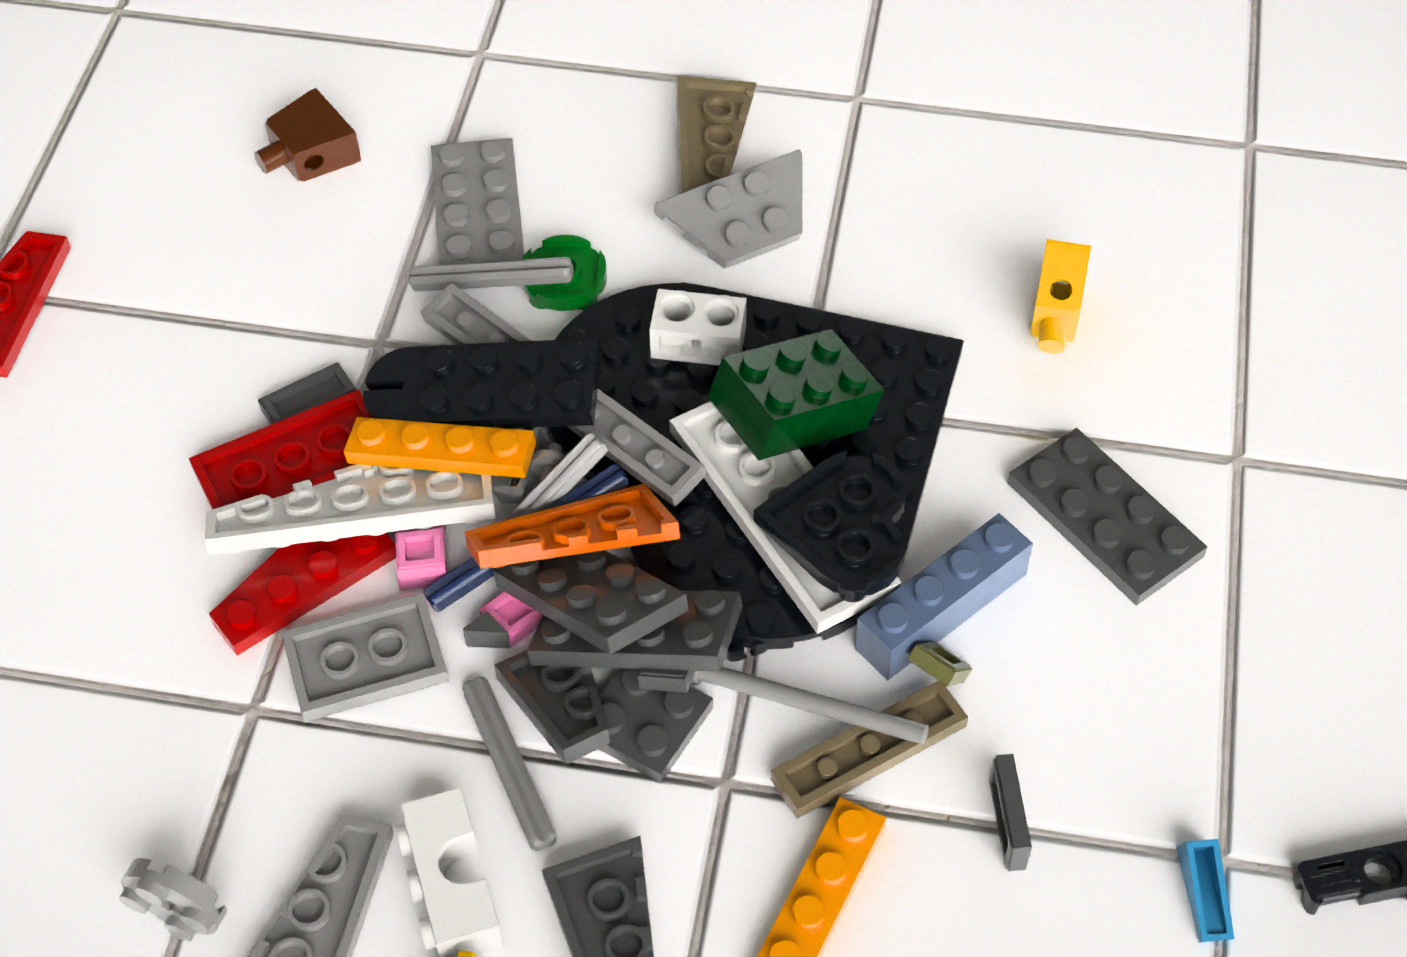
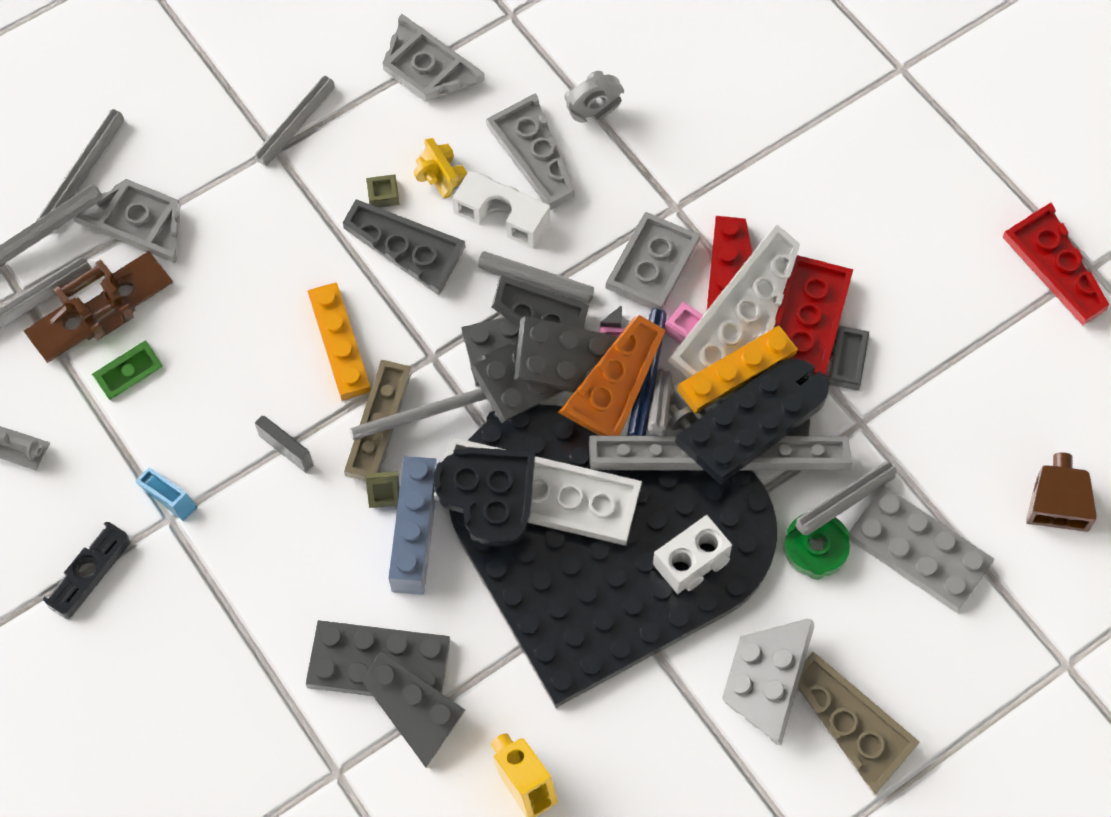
camera: 135 degrees right, 10 degrees up
(795, 393) = (587, 542): dark green brick -> none
(1111, 433) = (414, 706): none -> dark grey wing

